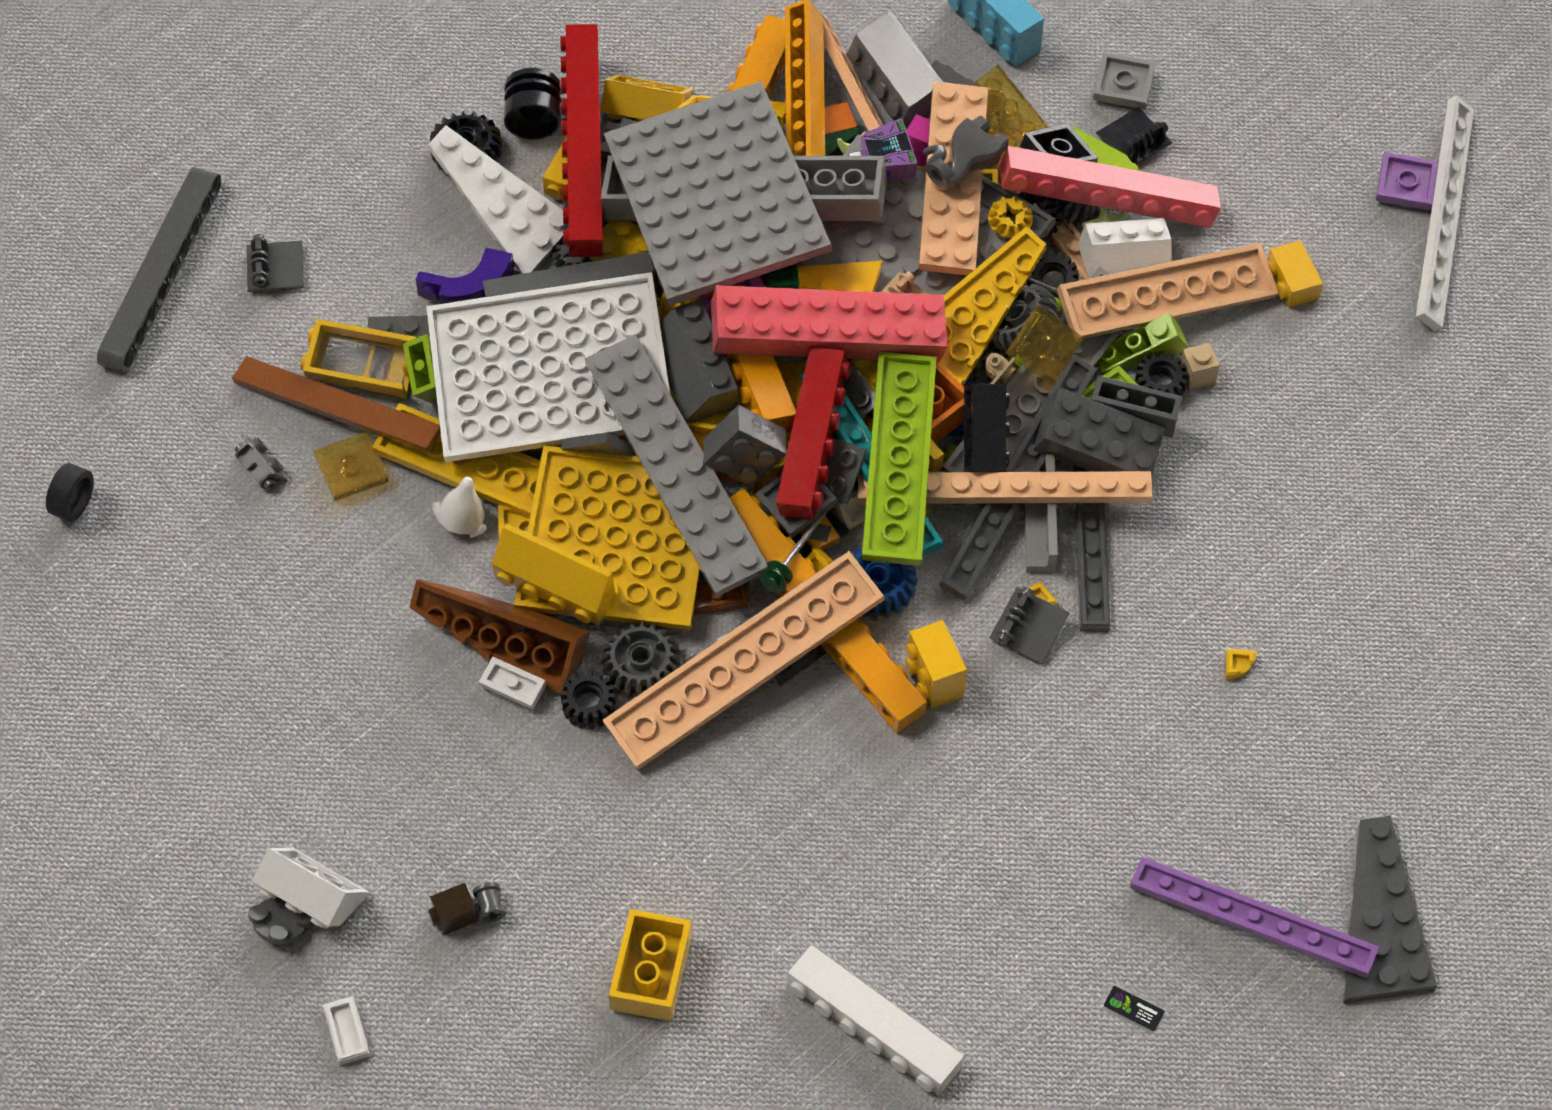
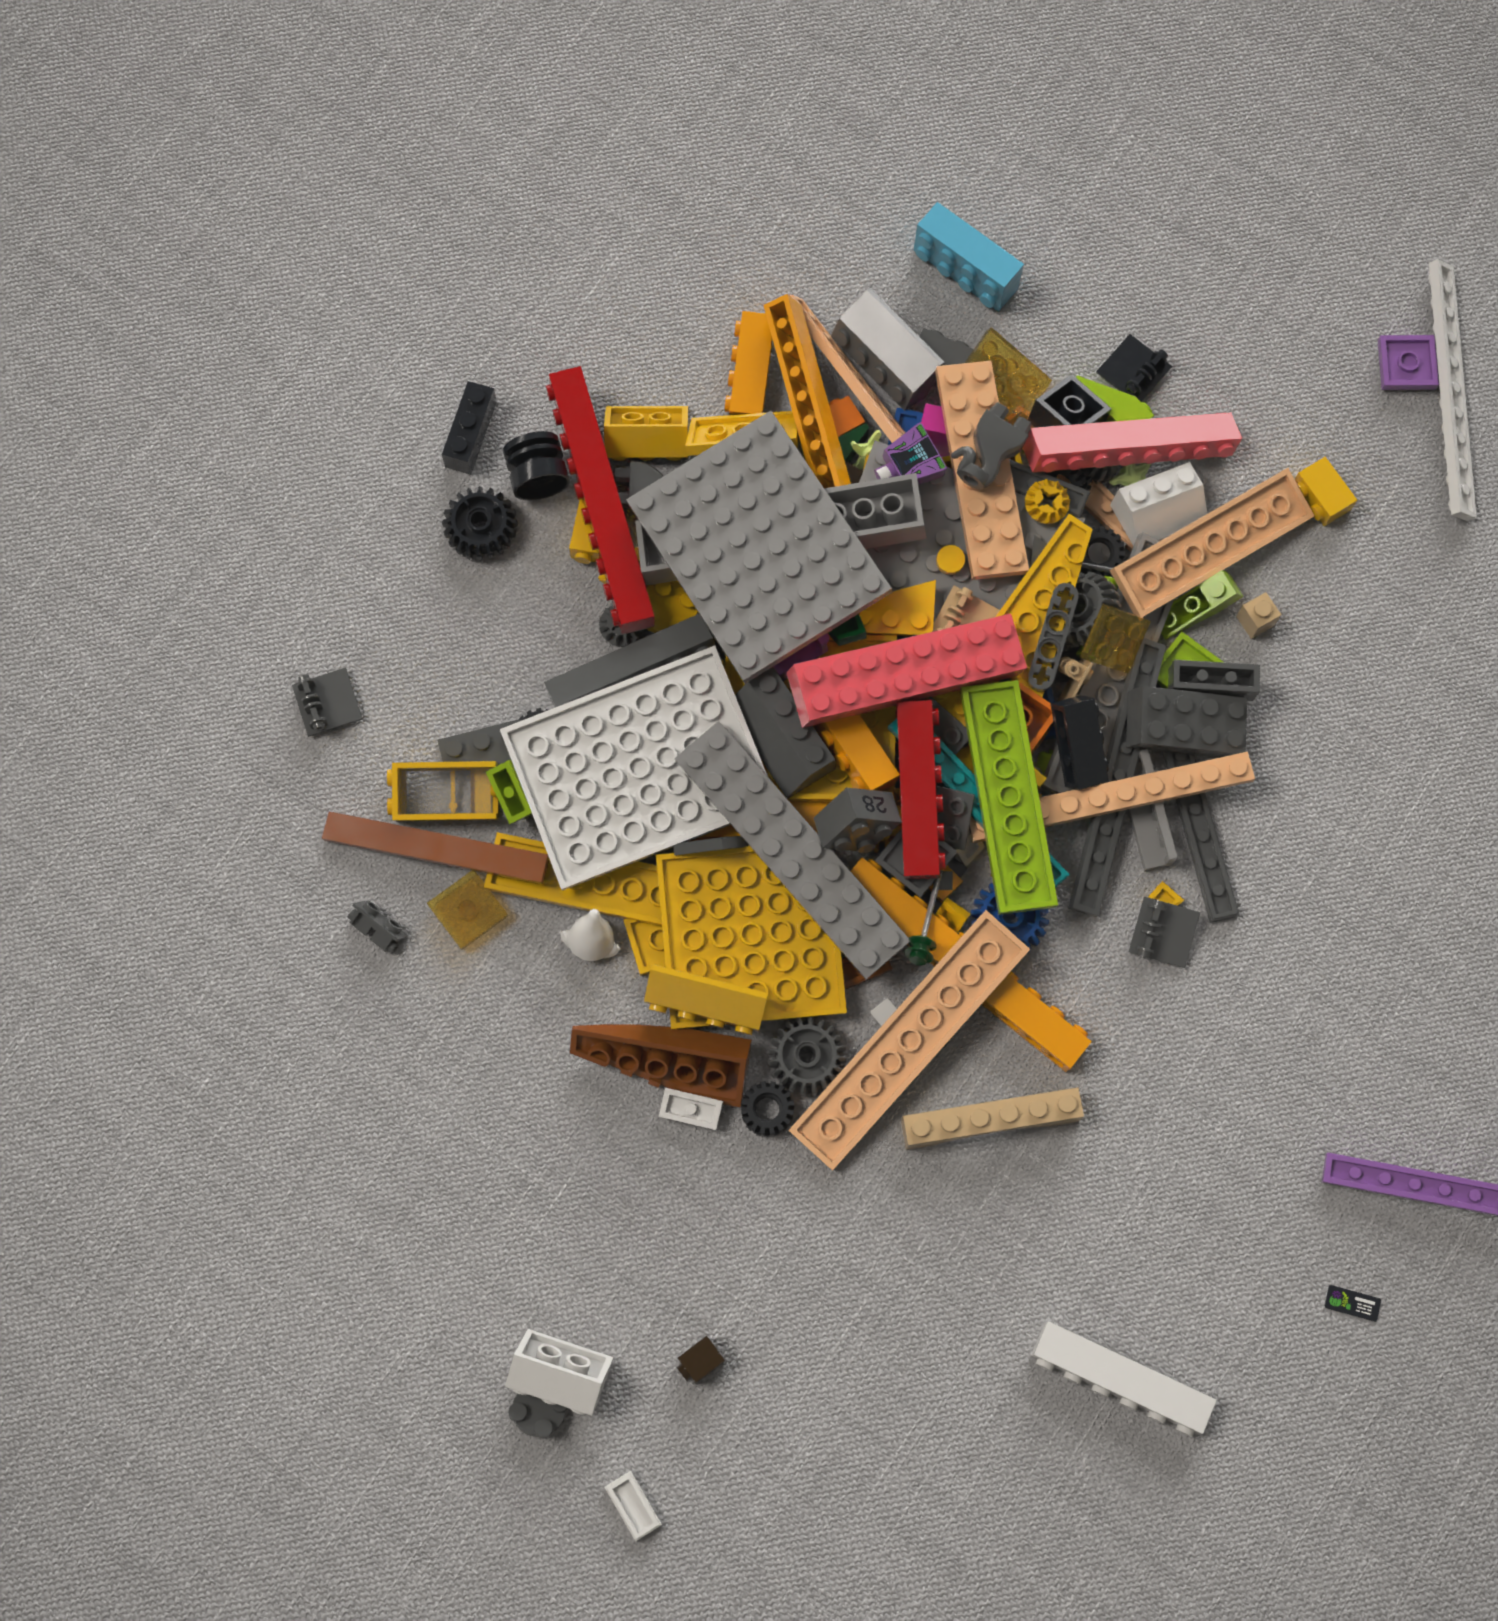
camera: 15 degrees left, 15 degrees up
(69, 492) = (200, 1007): black tyre -> none
(159, 270) = (213, 733): dark grey beam -> none
(447, 289) = (530, 689): dark purple arch -> none
(480, 64) = (469, 427): none -> black brick
(489, 902) = (732, 1344): dark grey bush -> none
(506, 205) = (544, 588): white wing -> none
(650, 965) = (903, 1376): yellow brick -> none
(859, 754) = (991, 1117): none -> tan arch
(902, 249) = (950, 559): none -> yellow tile
(936, 664) = (1090, 999): yellow brick -> none
(985, 332) = (1056, 638): none -> dark grey beam
(1124, 80) = (1110, 307): light grey plate -> none
(1166, 366) = (1229, 620): black tyre -> none
(1238, 663) = (1366, 924): yellow tile -> none

